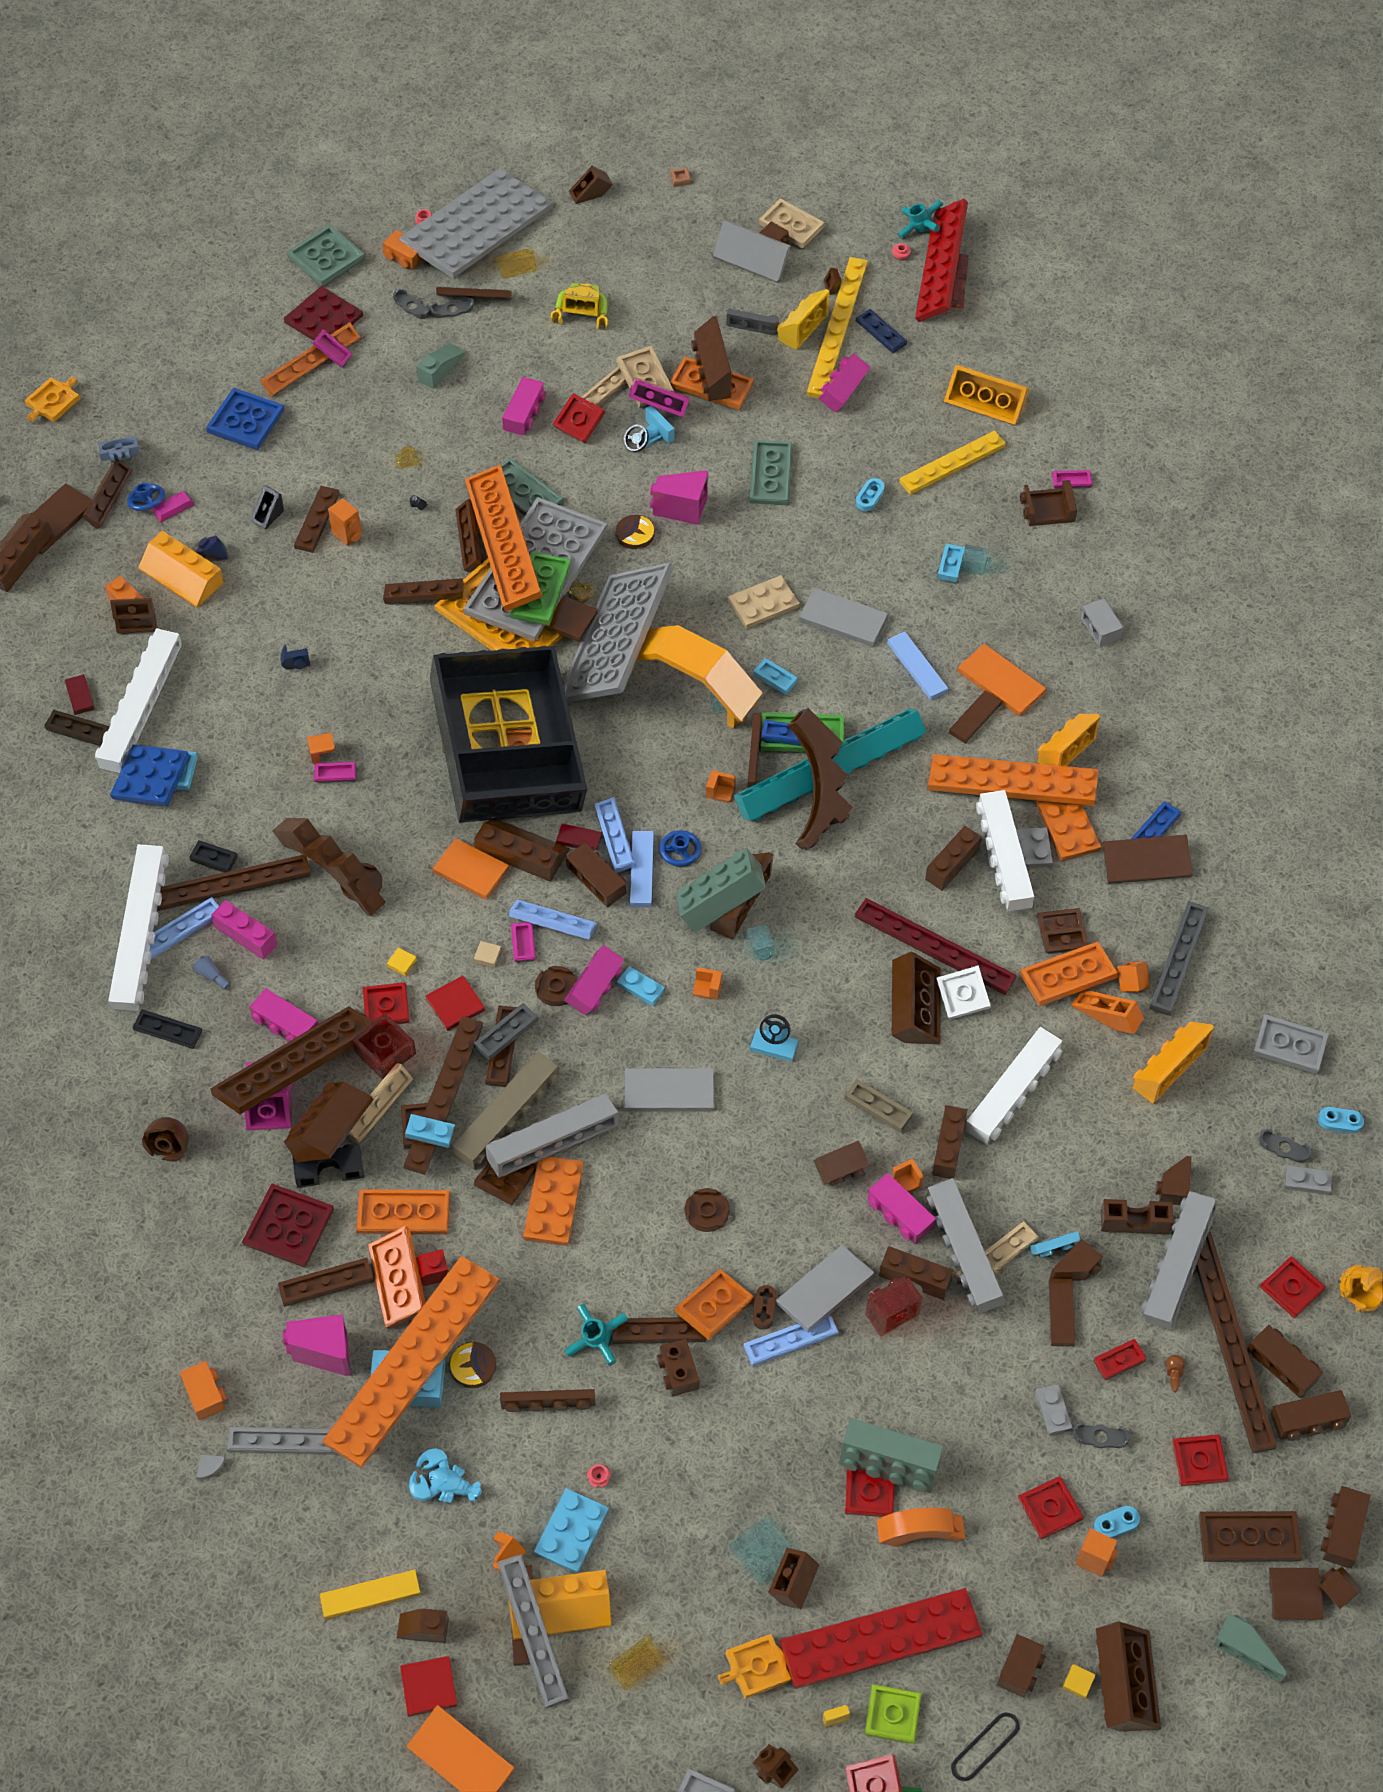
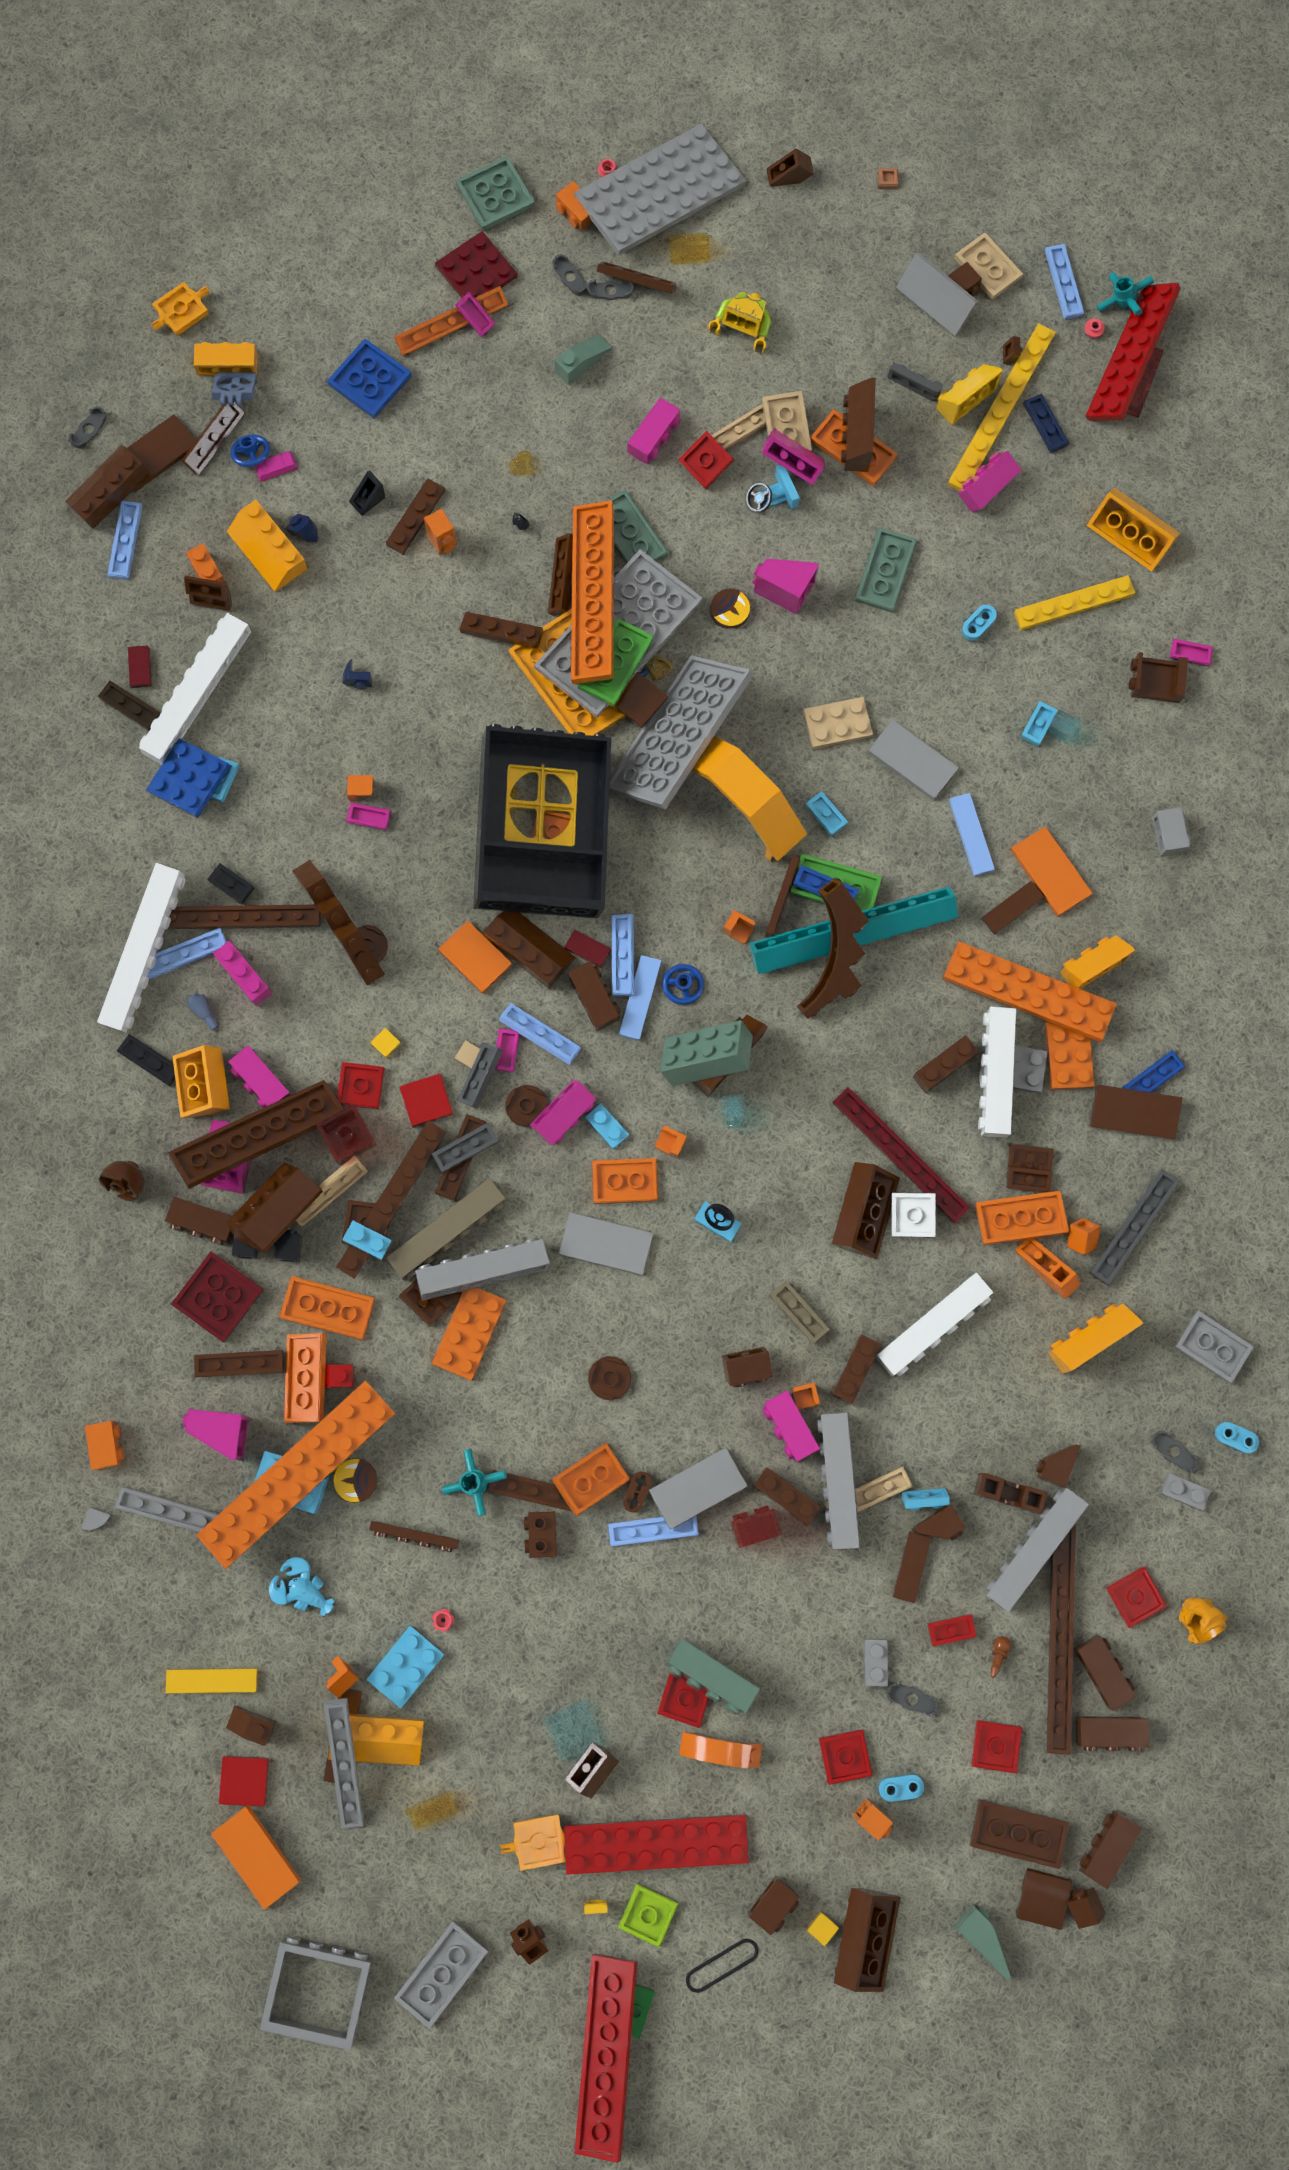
camera: 10 degrees right, 20 degrees up
(41, 594) = (125, 540): none -> light blue tile
(104, 428) = (224, 358): none -> light orange brick
(225, 1033) = (201, 1082): none -> light orange slope
(254, 1158) = (199, 1221): none -> reddish brown brick
(503, 966) = (480, 1075): none -> dark grey plate
(672, 1030) = (625, 1180): none -> orange tile
(863, 222) = (1064, 281): none -> light blue tile

